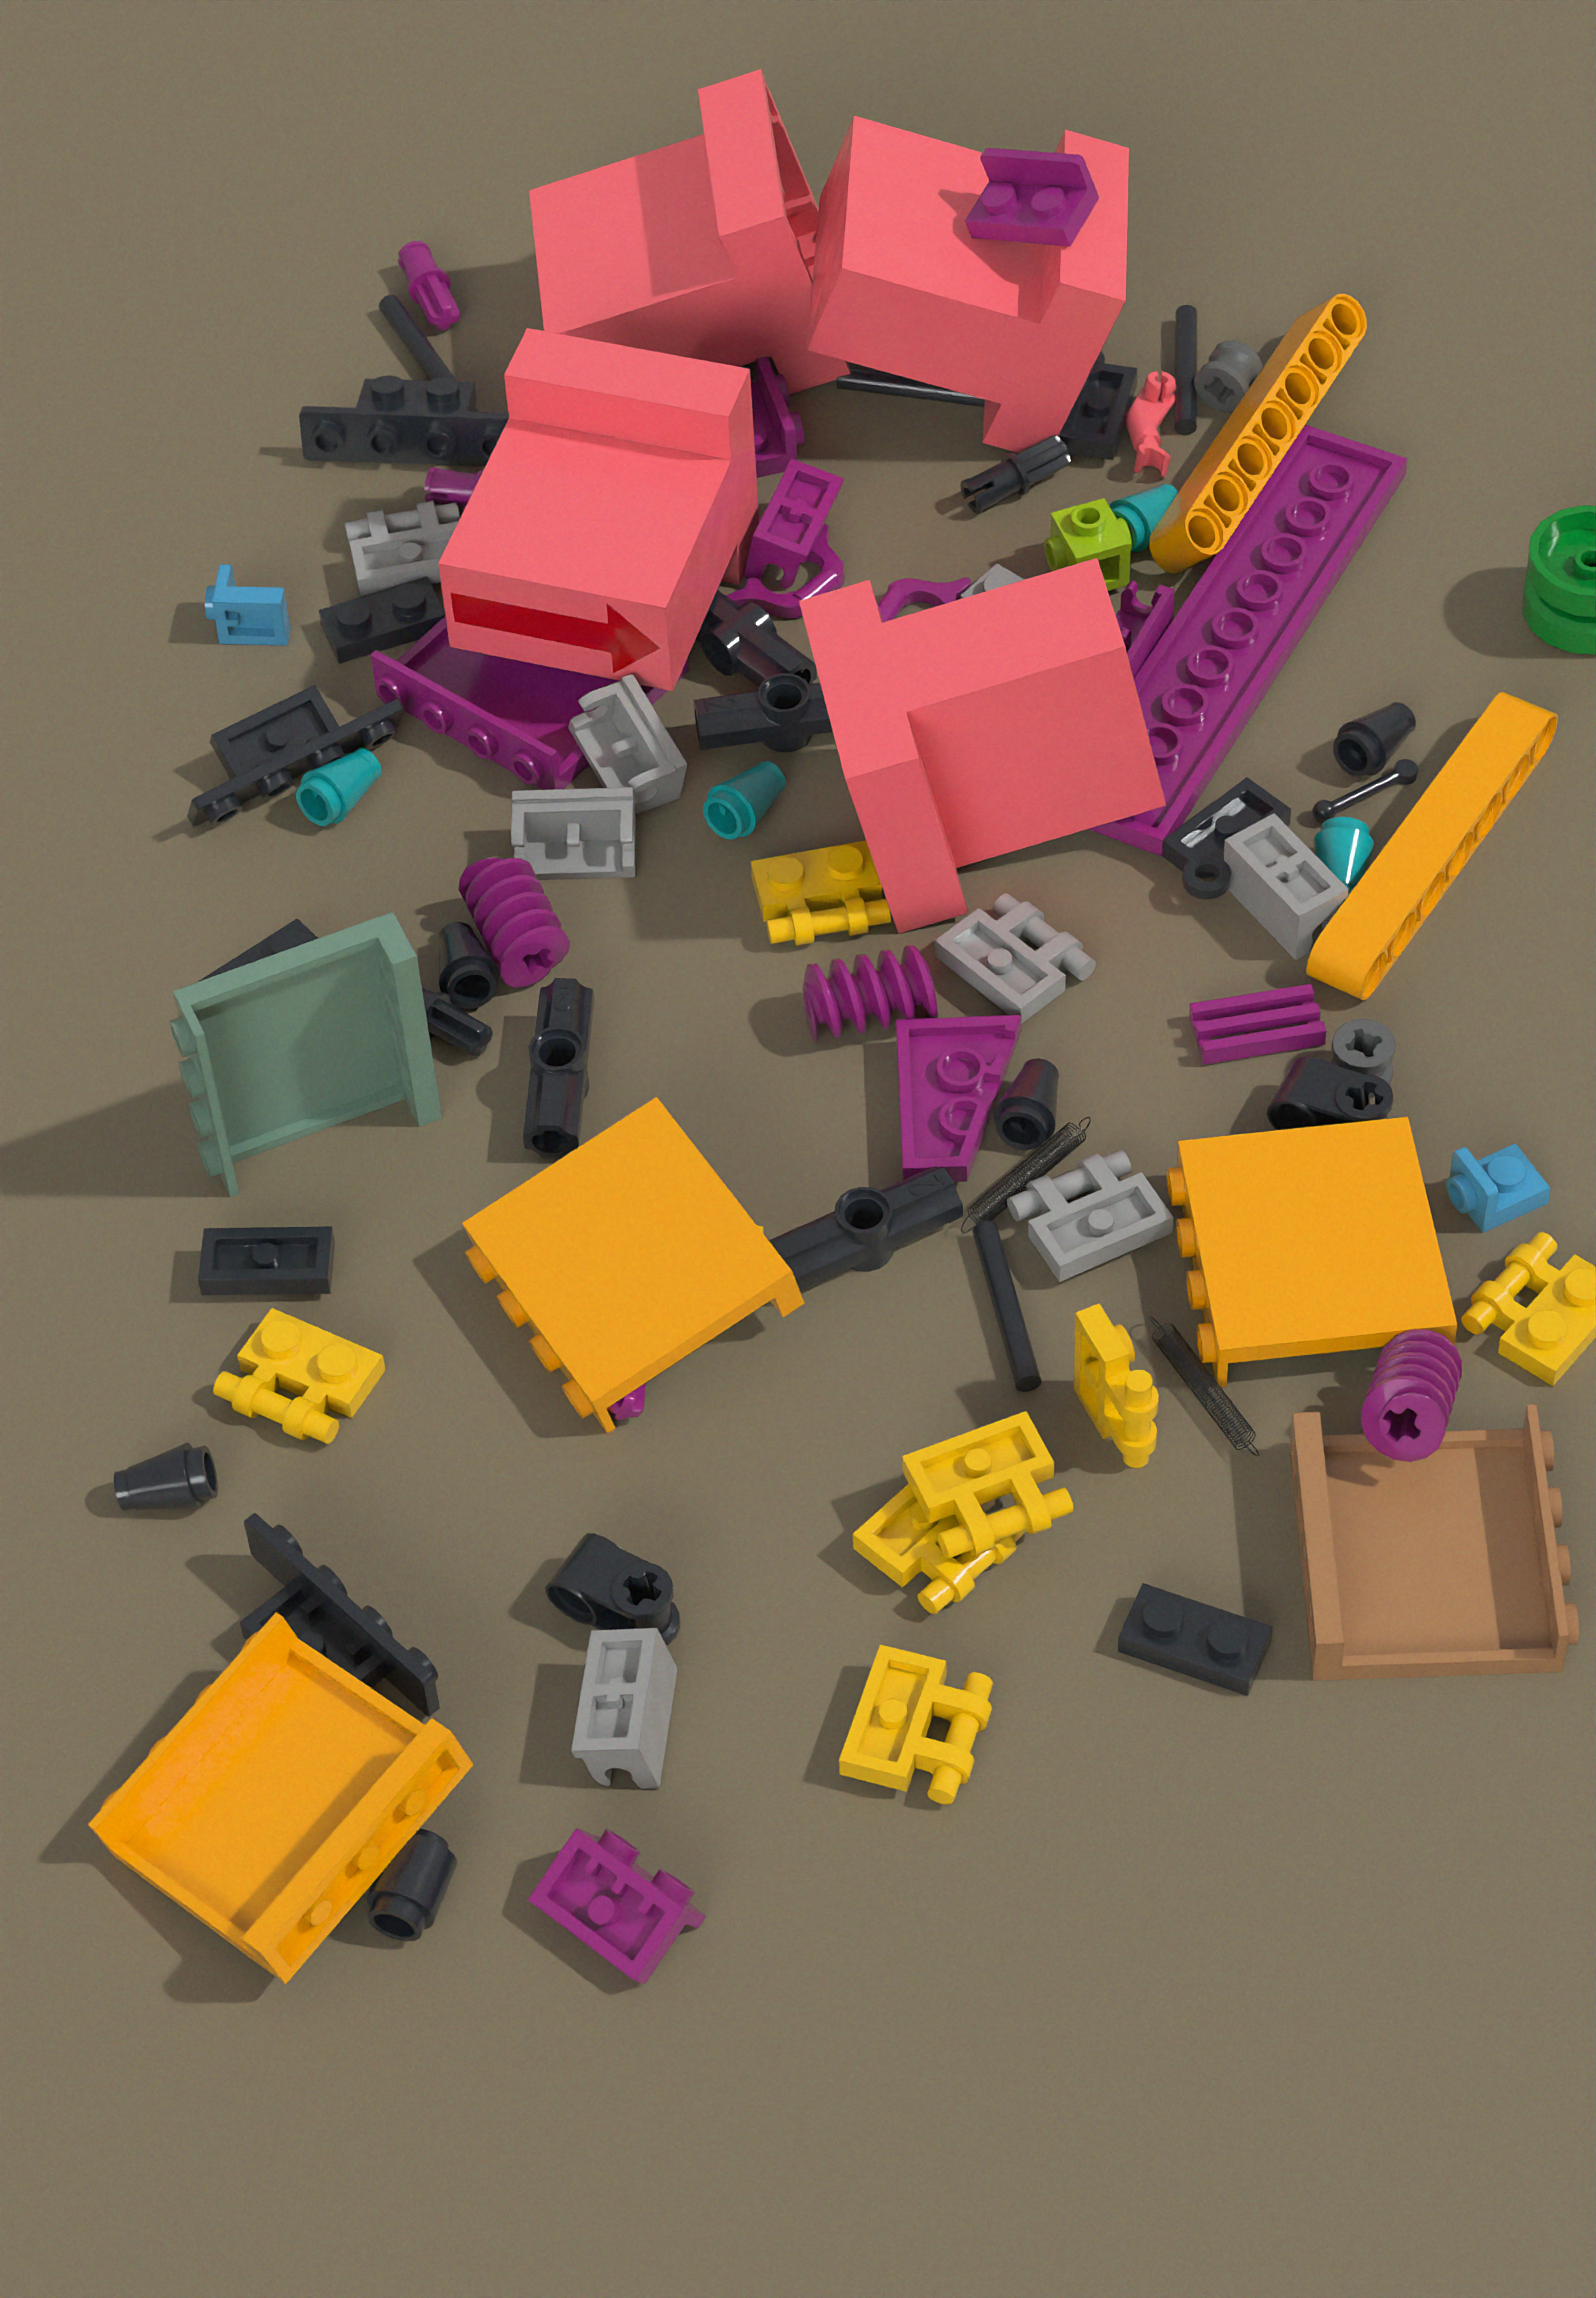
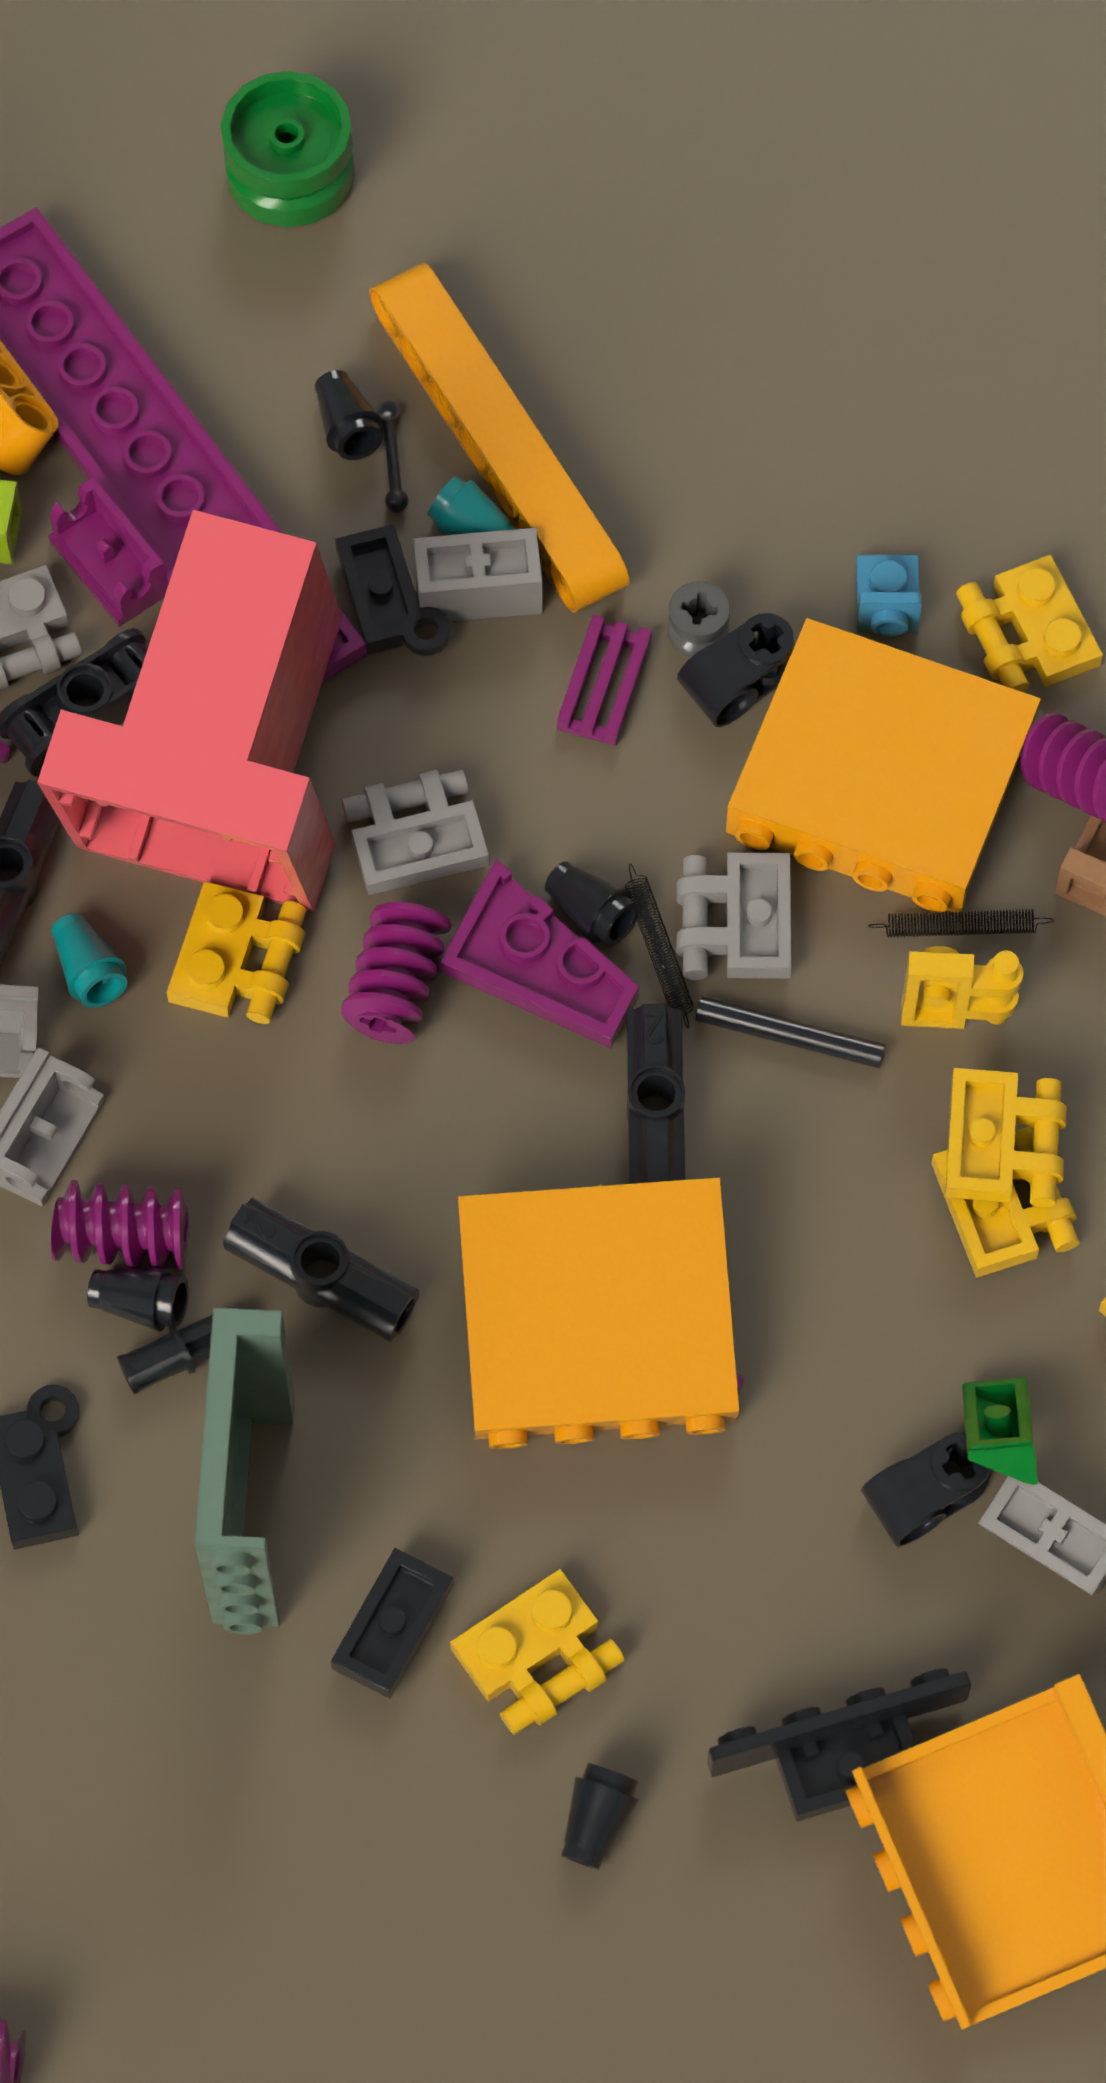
camera: 65 degrees left, 15 degrees up
(695, 1612) = (1000, 1427): none -> green slope

